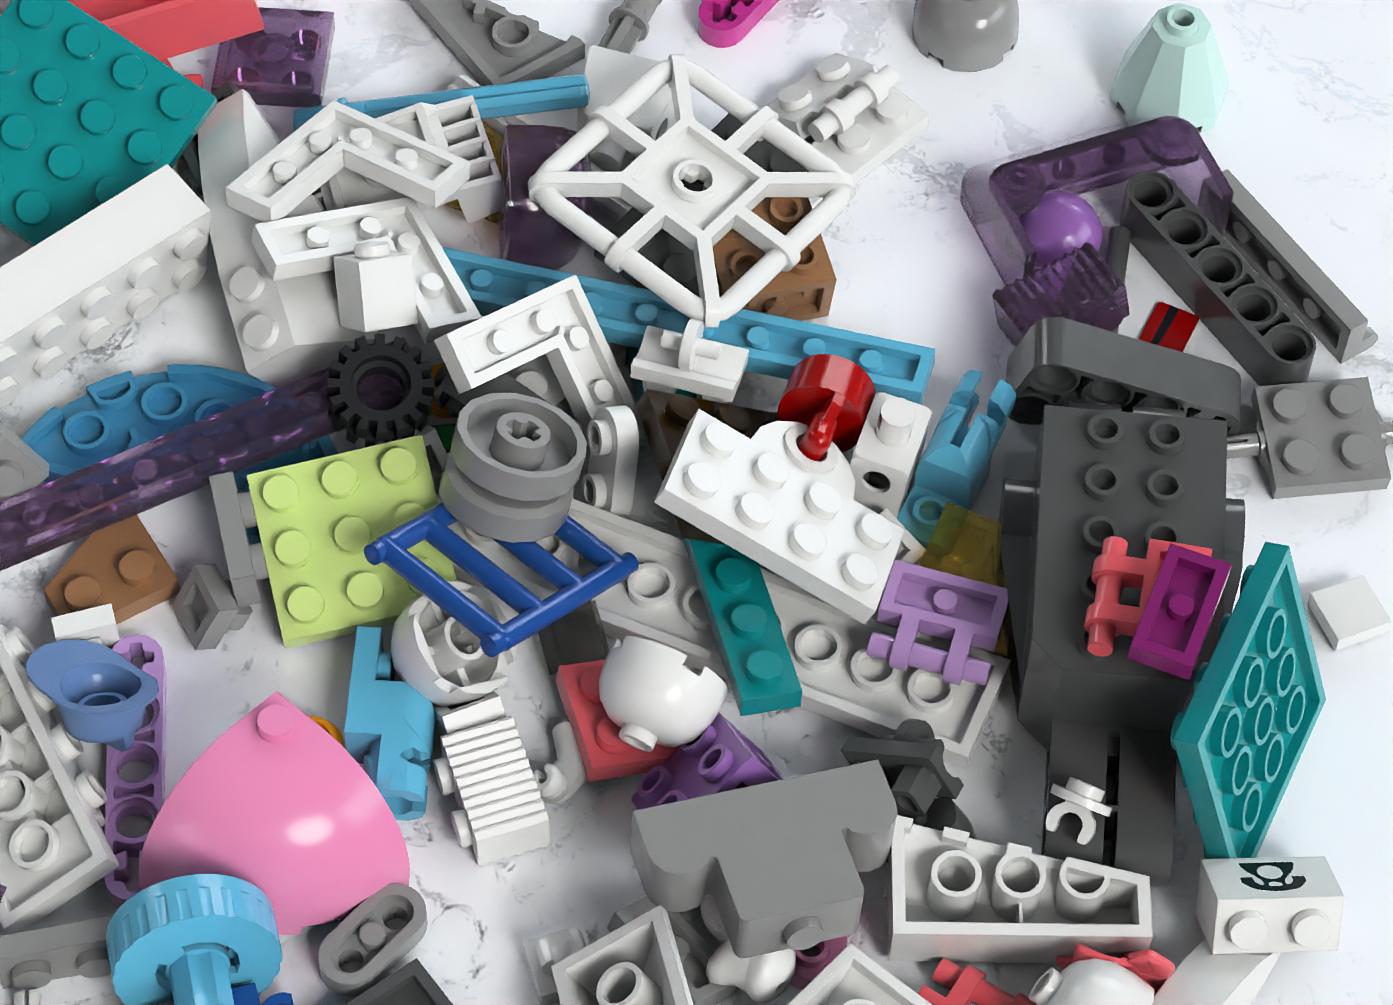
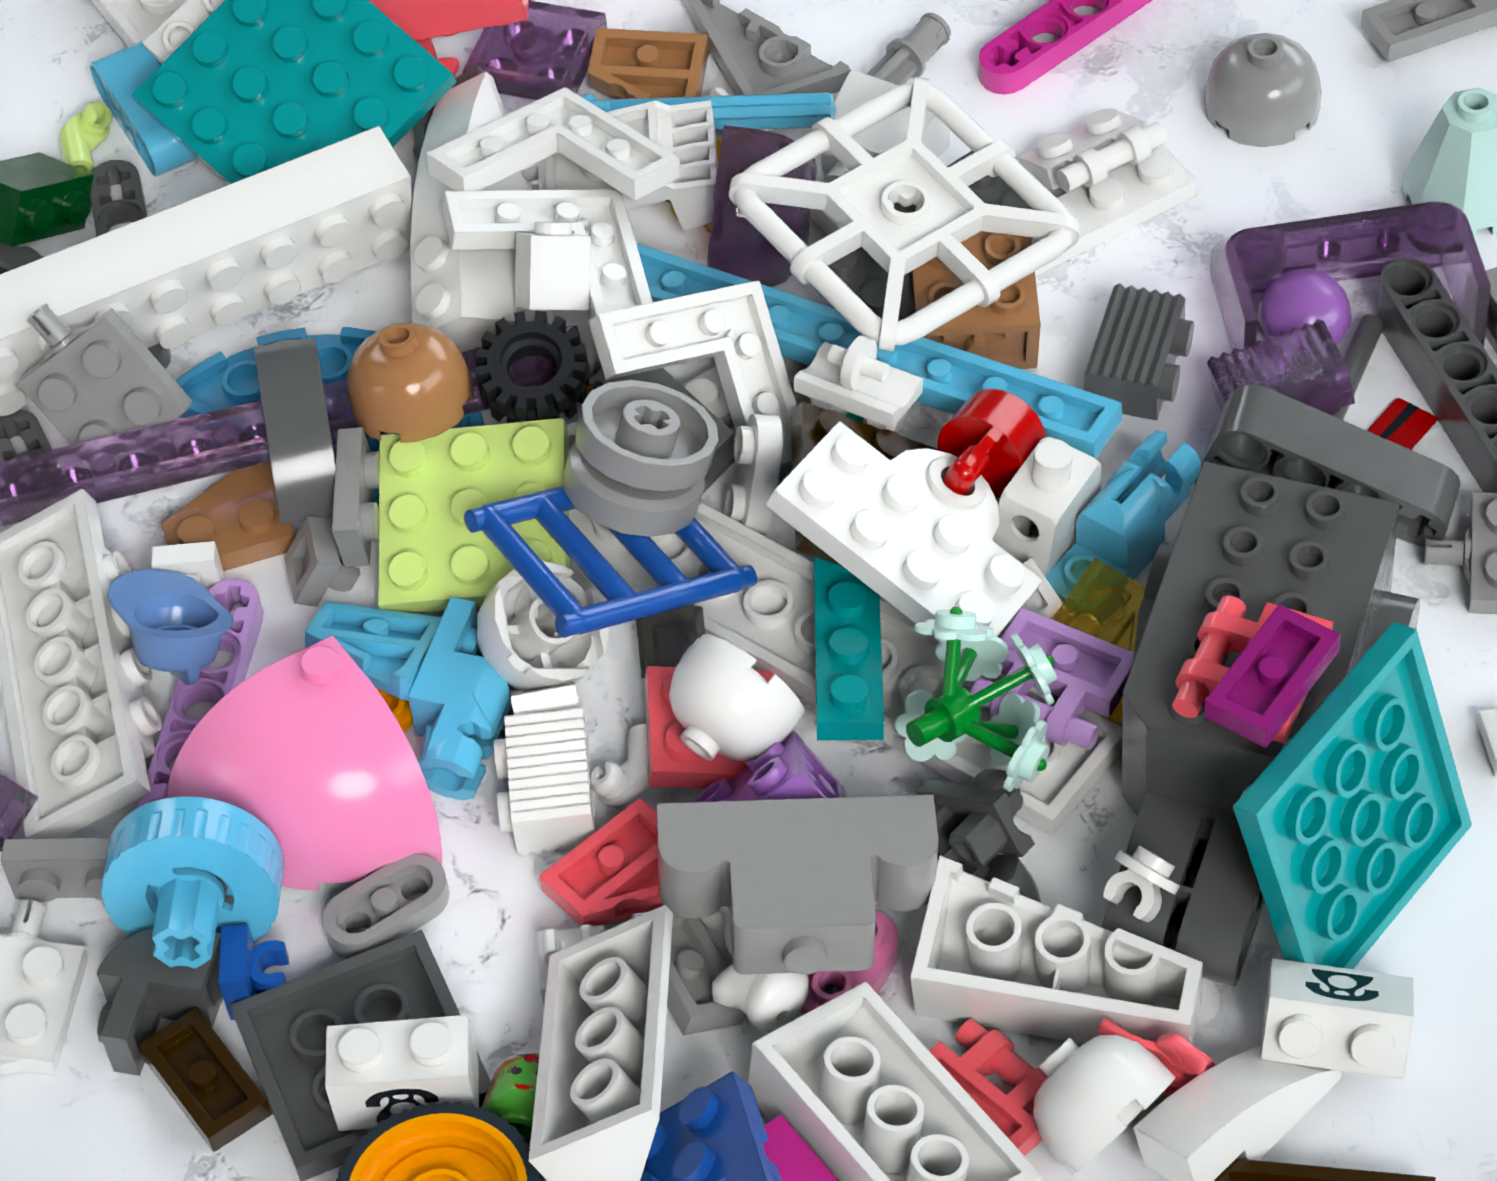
camera: 20 degrees right, 5 degrees down
(166, 477) = (297, 428): none -> dark grey arch
(266, 422) = (408, 383): none -> medium nougat cylinder
(306, 675) = (380, 641): none -> medium azure wing
(387, 60) = (648, 63): none -> medium nougat wing
(581, 868) = (609, 871): none -> coral wing
(910, 675) = (938, 722): none -> light aqua plant
(922, 289) = (1139, 350): none -> dark grey brick

